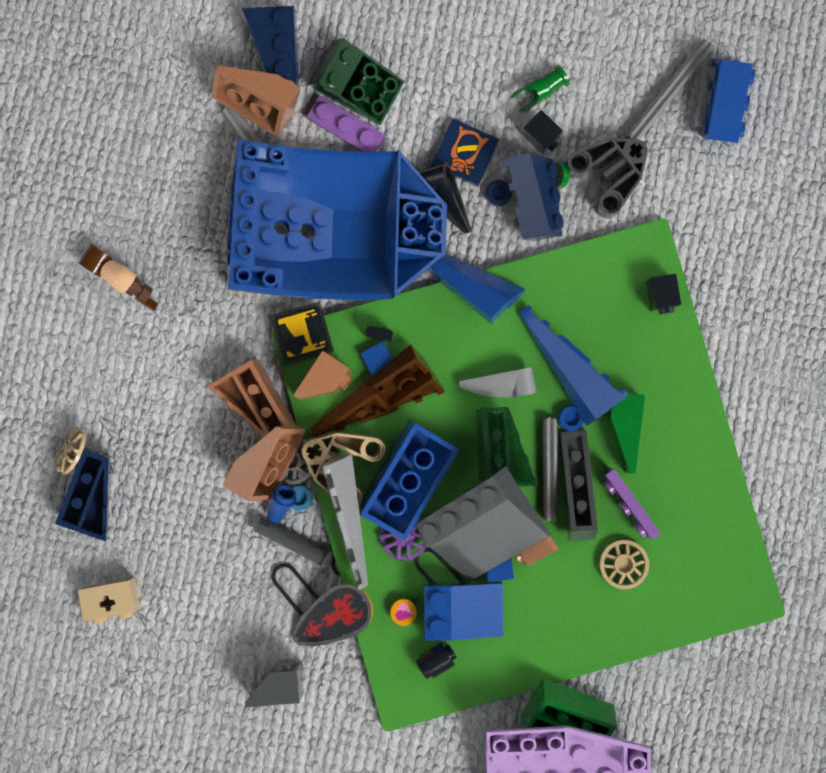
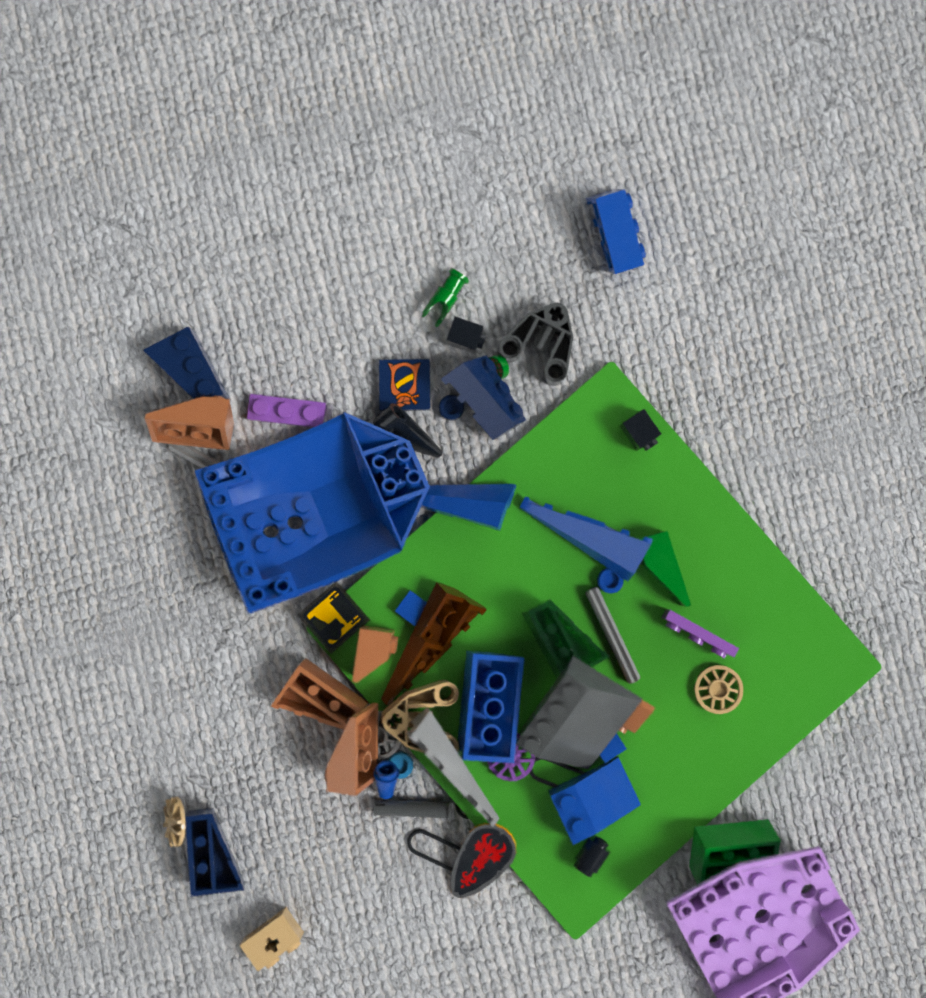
camera: 25 degrees left, 0 degrees up
(117, 276) = (143, 643): piece -> none
(280, 685) = (462, 946): dark grey slope -> none
(356, 81) = (277, 366): dark green slope -> none
(379, 334) = (403, 585): black tile -> none
(403, 612) = (541, 825): light orange tile -> none
(502, 385) = (535, 579): light grey piece -> none
(578, 486) = (645, 639): dark grey slope -> none
(670, 90) = (561, 245): light grey axle -> none

